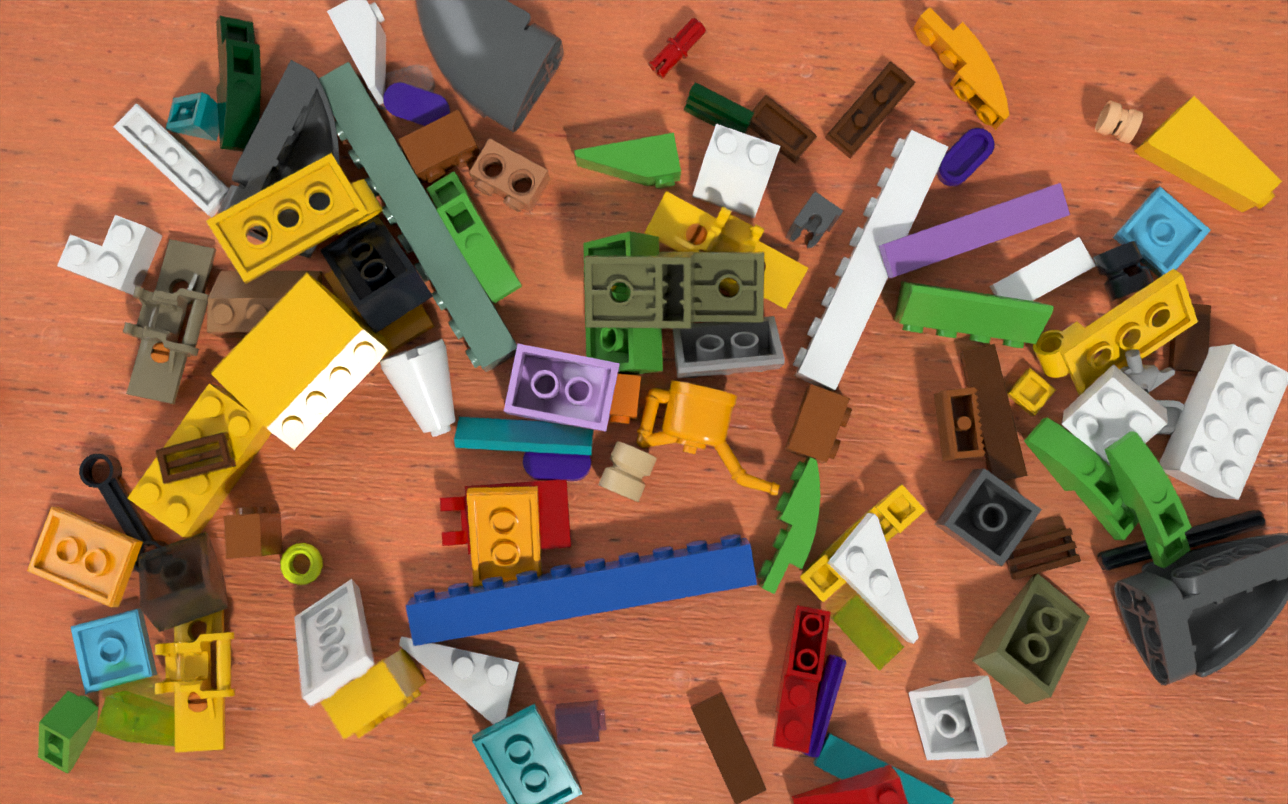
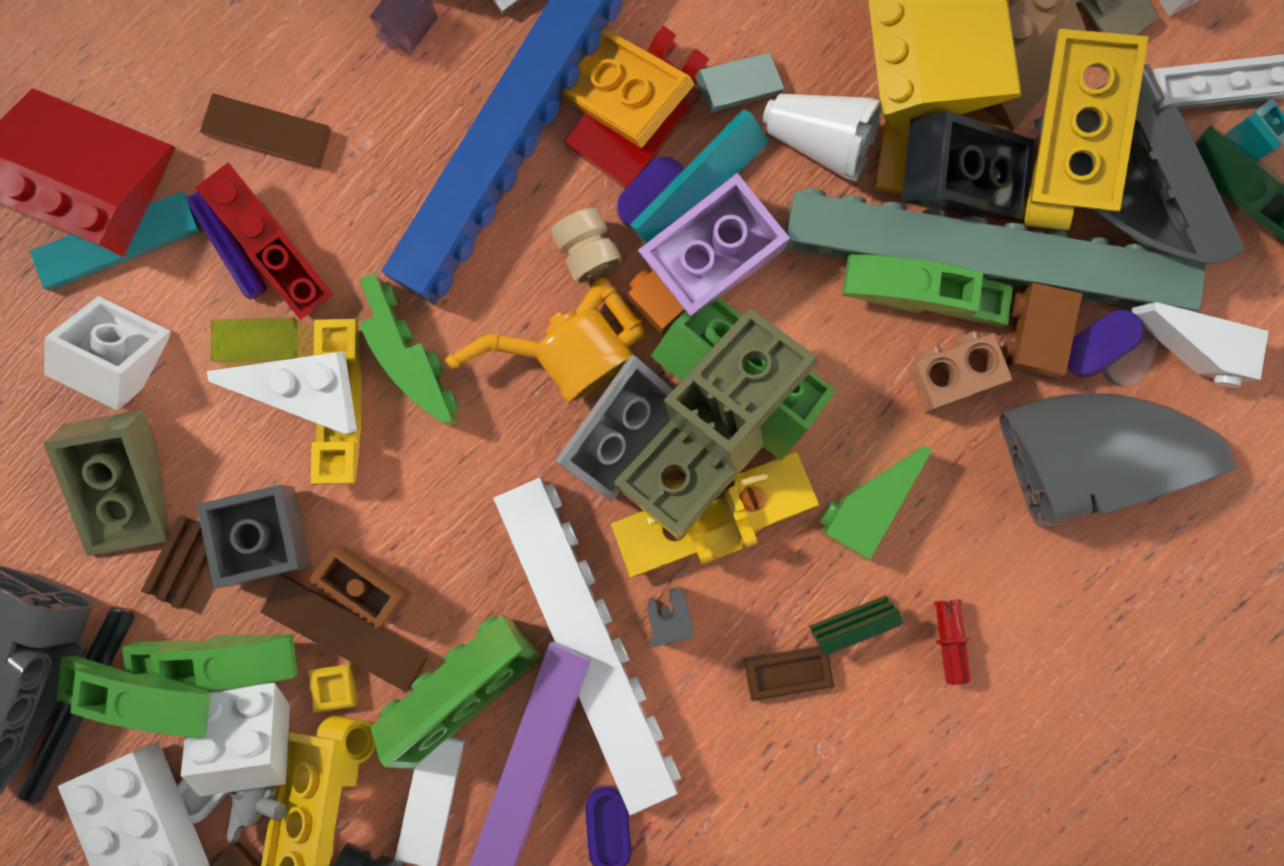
camera: 130 degrees right, 0 degrees up
(437, 466) = (739, 82): none -> sand green tile
(735, 171) = (783, 590): white slope -> none
(818, 424) = (476, 457): dark orange brick -> none
(870, 110) = (733, 777): reddish brown tile -> none

